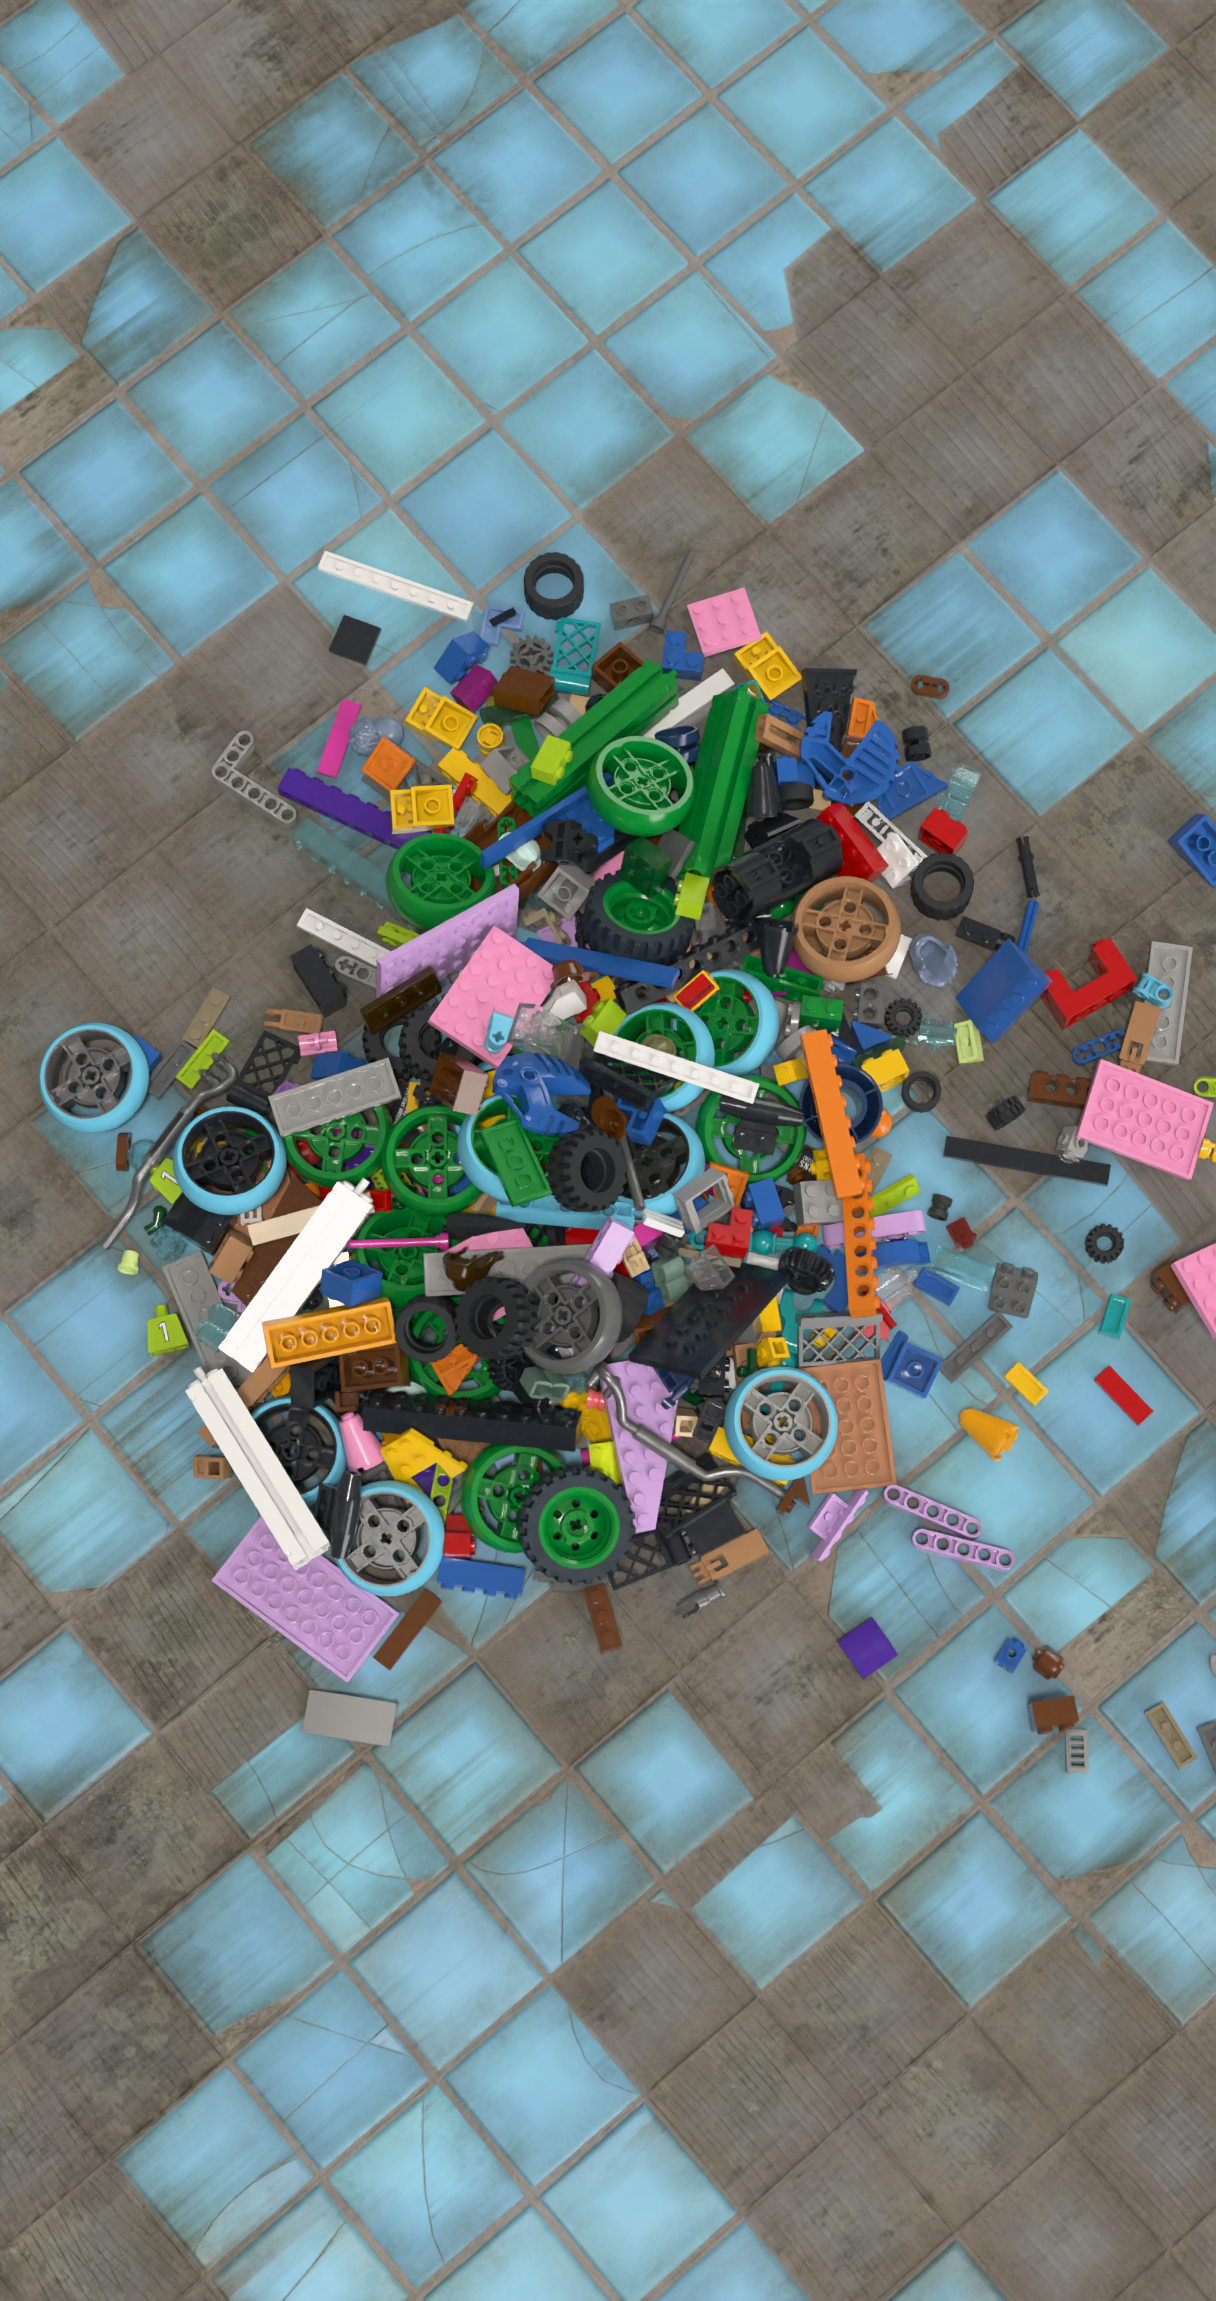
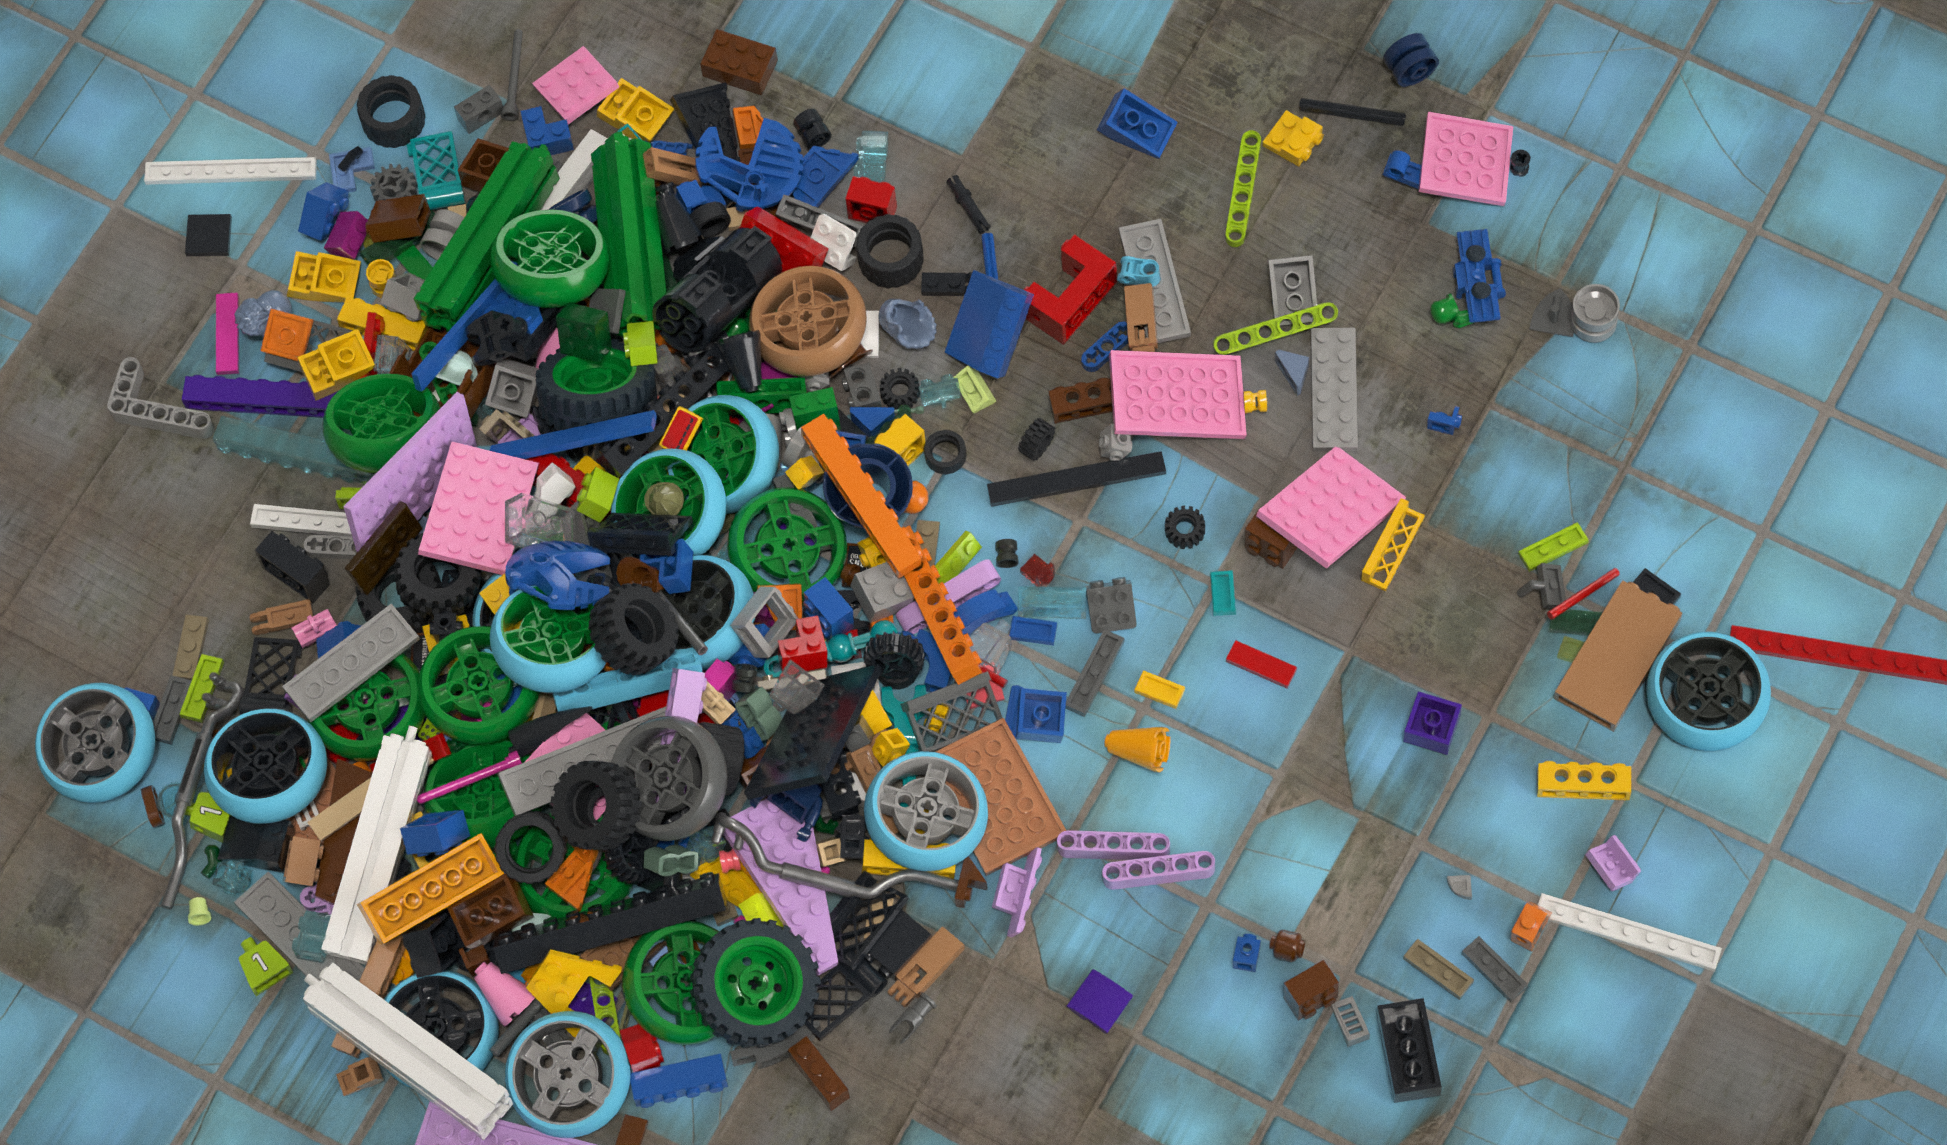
camera: 15 degrees left, 10 degrees down
(339, 1512) = (508, 1060): black plate -> none
(458, 1083) = (472, 595): reddish brown brick -> none
(465, 1271) = (546, 774): dark brown piece -> none
(498, 1030) = (493, 536): medium azure piece -> none
(515, 1162) = (558, 645): green tile -> none
(551, 760) = (450, 264): lime brick -> none
(569, 970) = (548, 454): reddish brown piece -> none
(662, 1222) = (730, 658): white tile -> none
(676, 1067) = (687, 504): white tile -> none
(750, 1366) = (873, 768): dark green arm -> none
(758, 1120) = (790, 527): black plate -> none
(875, 655) = (739, 62): none -> reddish brown brick
(928, 683) = (805, 73): reddish brown beam -> none
(1116, 1800) = (1409, 1050): none -> black brick

